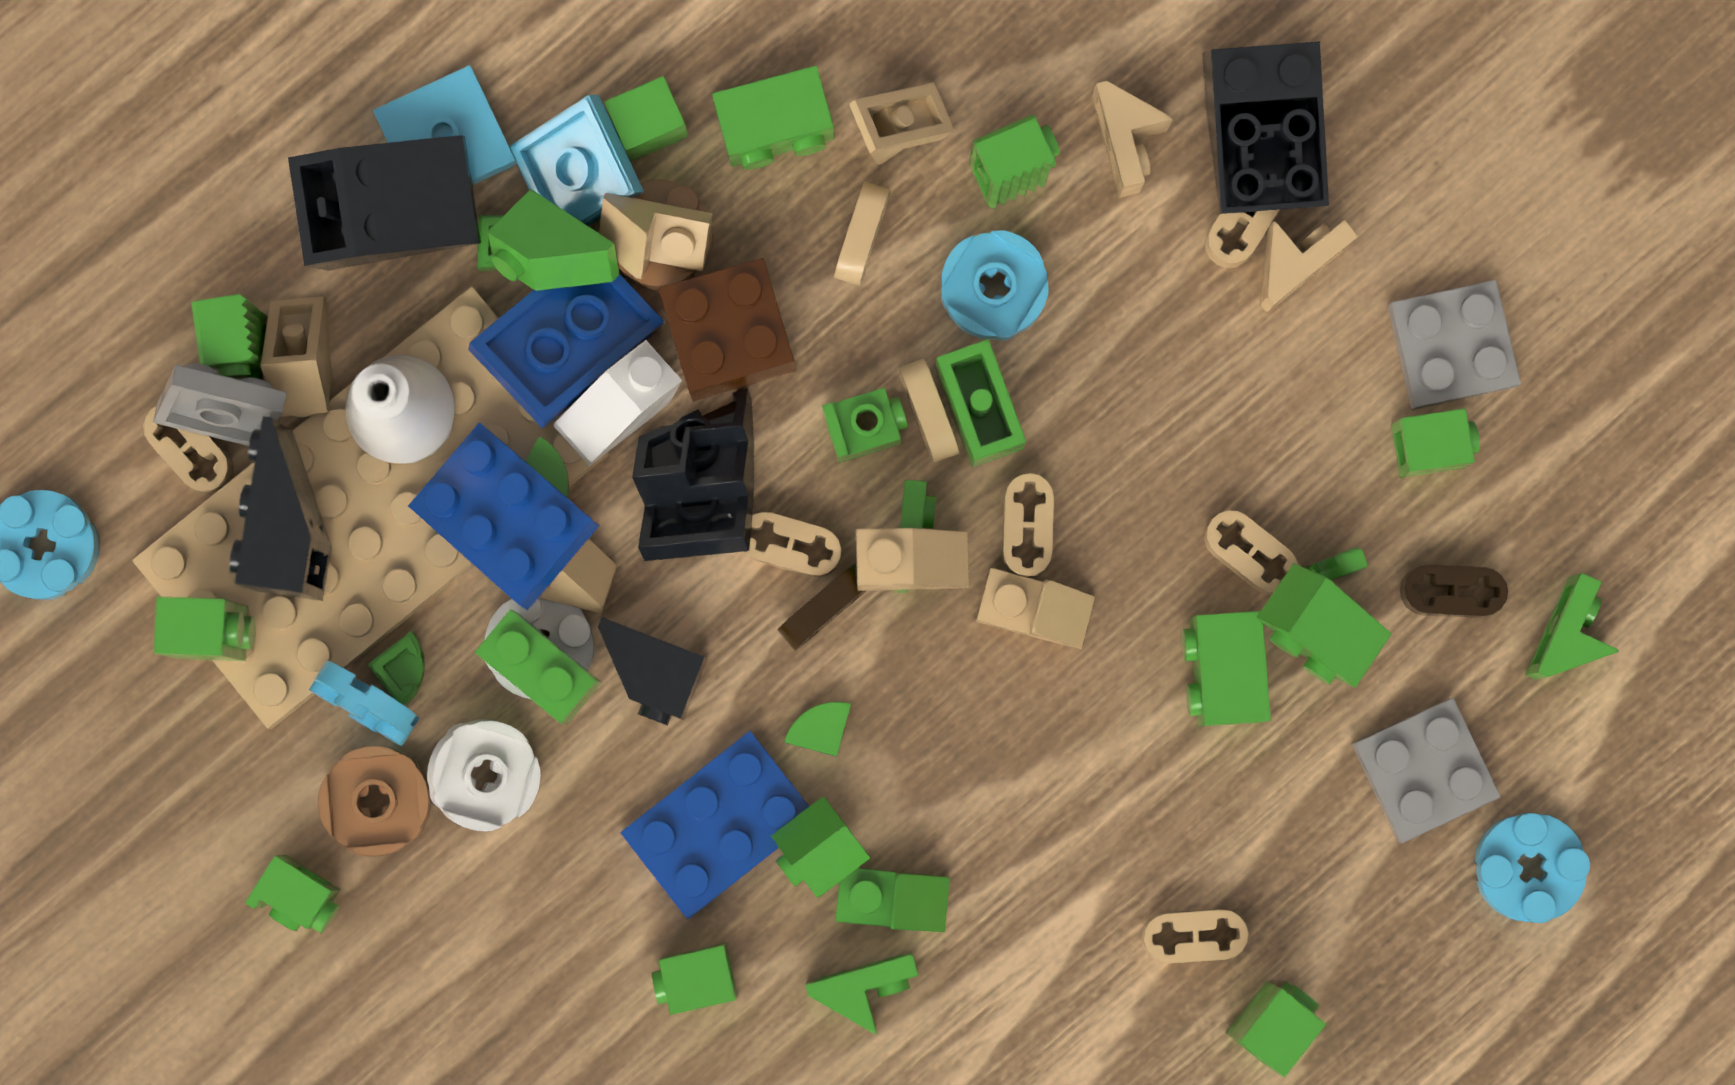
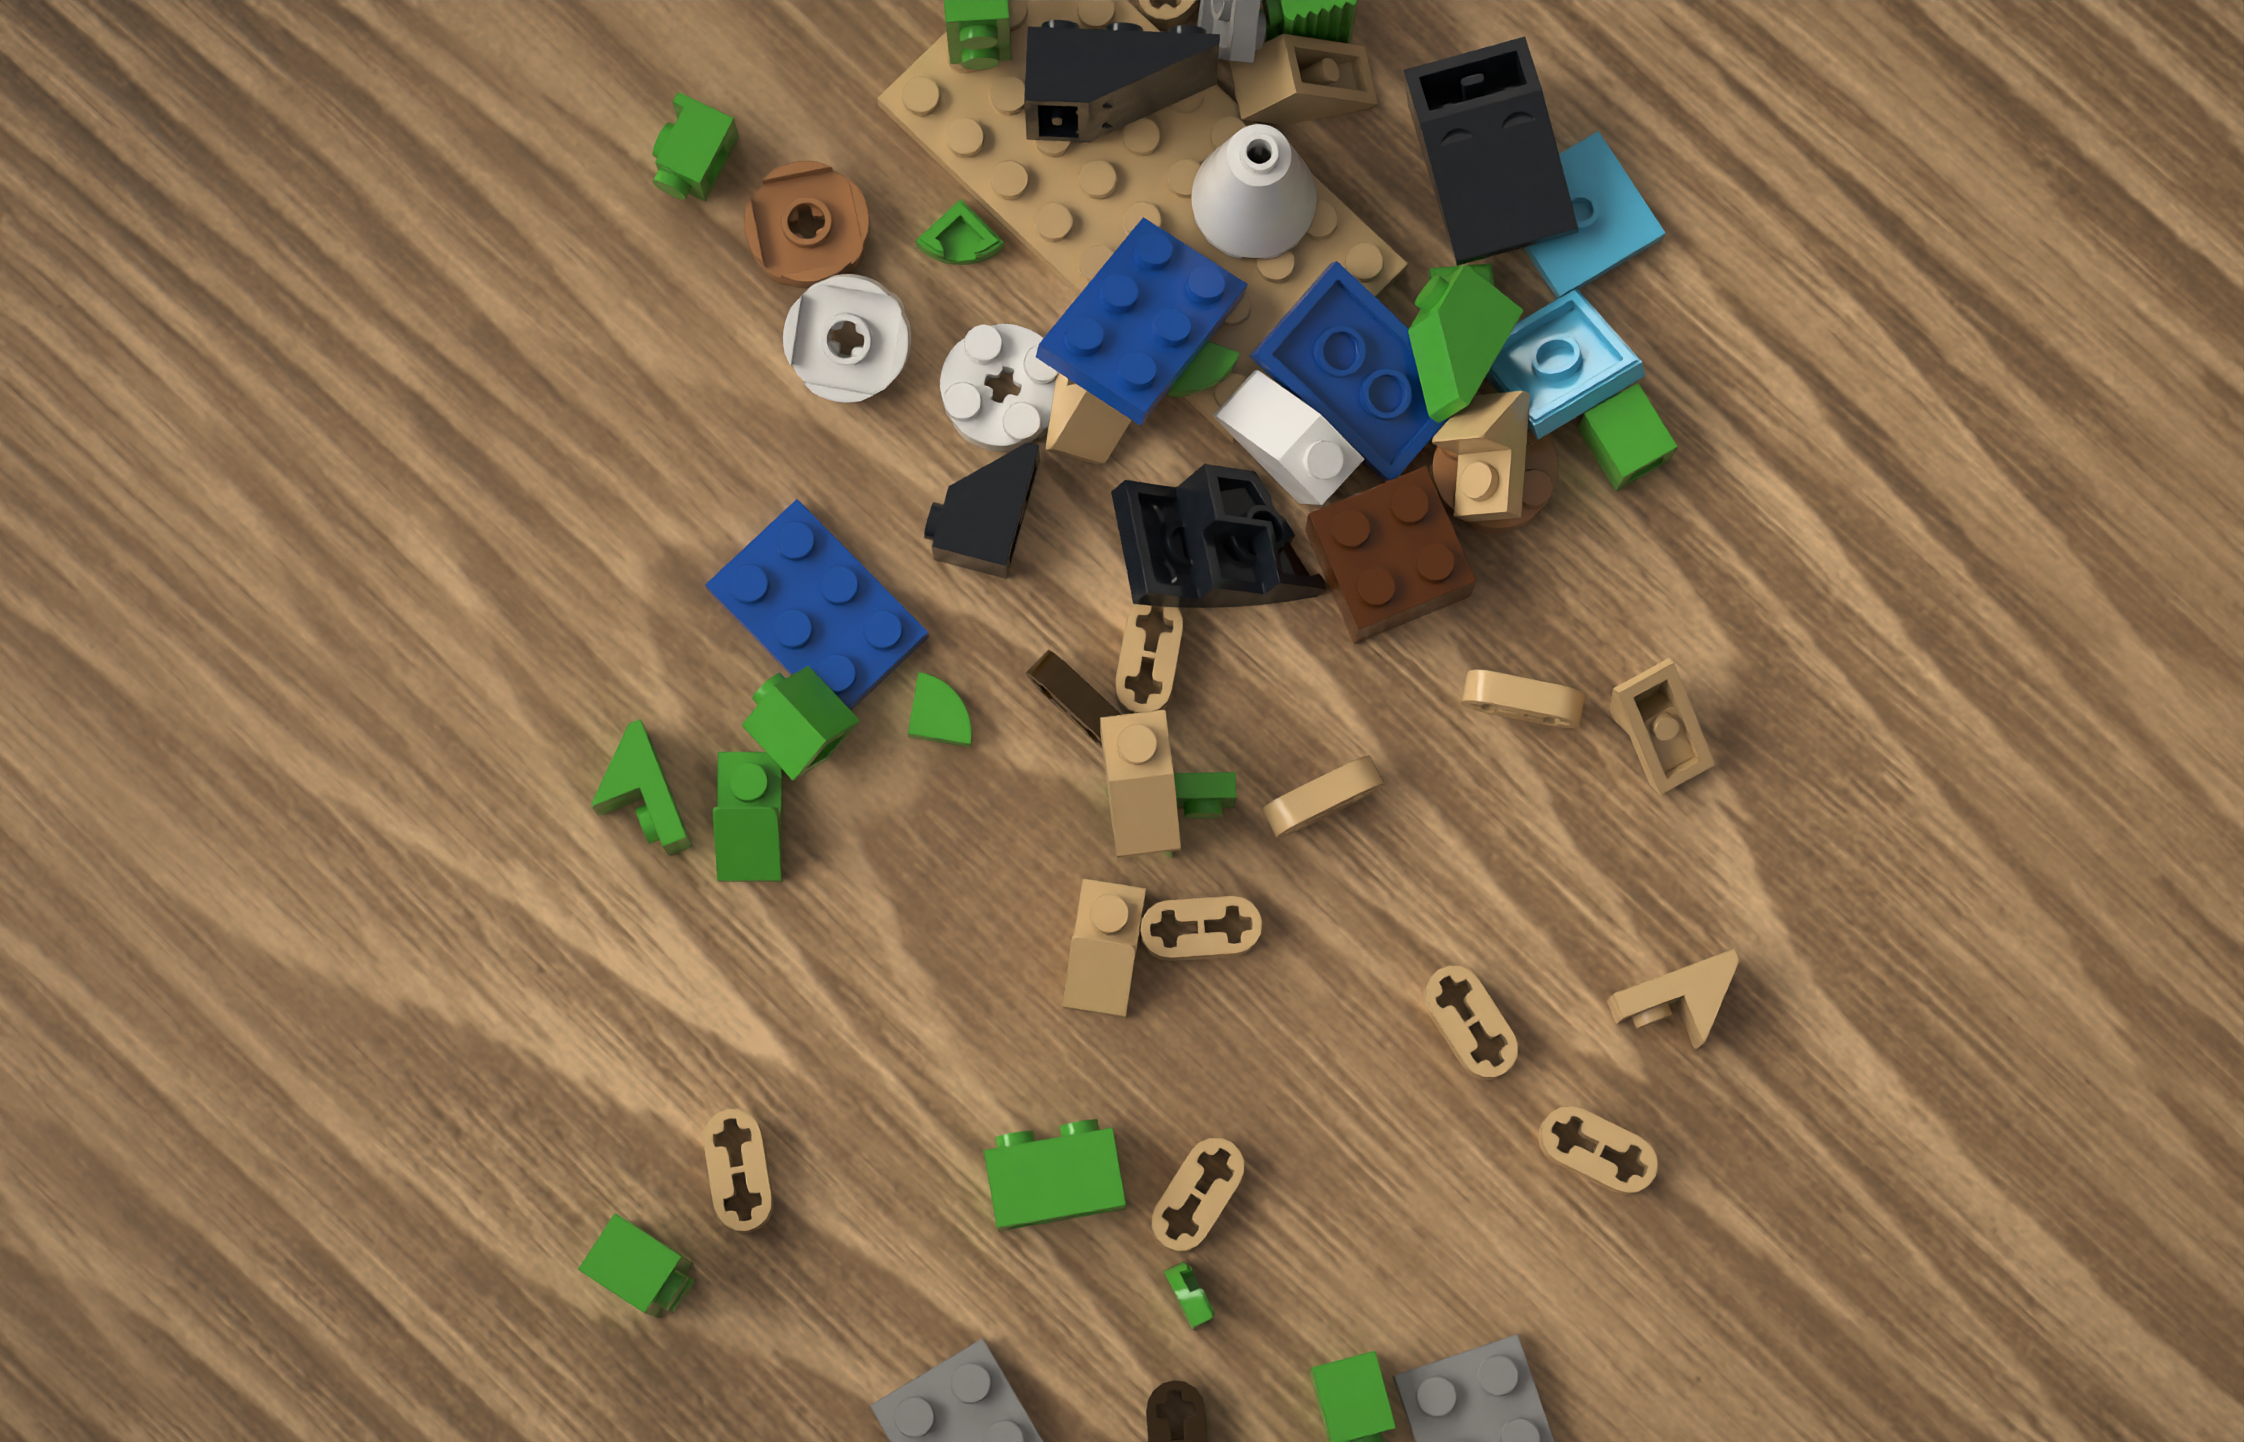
camera: 85 degrees right, 5 degrees down
(364, 703) = (914, 196): medium azure plate -> none
(538, 667) = (973, 380): bright green brick -> none
(695, 979) = (637, 600): bright green brick -> none
(774, 118) = (1646, 582): bright green brick -> none
(850, 440) = (1292, 750): bright green brick -> none
(980, 403) = (1335, 851): bright green brick -> none
(986, 255) = (1515, 847): medium azure plate -> none
(1013, 160) = (1629, 860): bright green brick -> none
(1123, 299) = (1483, 1013): none -> tan beam
(1267, 126) = (1709, 1160): black slope -> none
(1288, 268) = (1539, 1205): tan slope -> none
(1323, 626) = (1114, 1281): bright green brick -> none

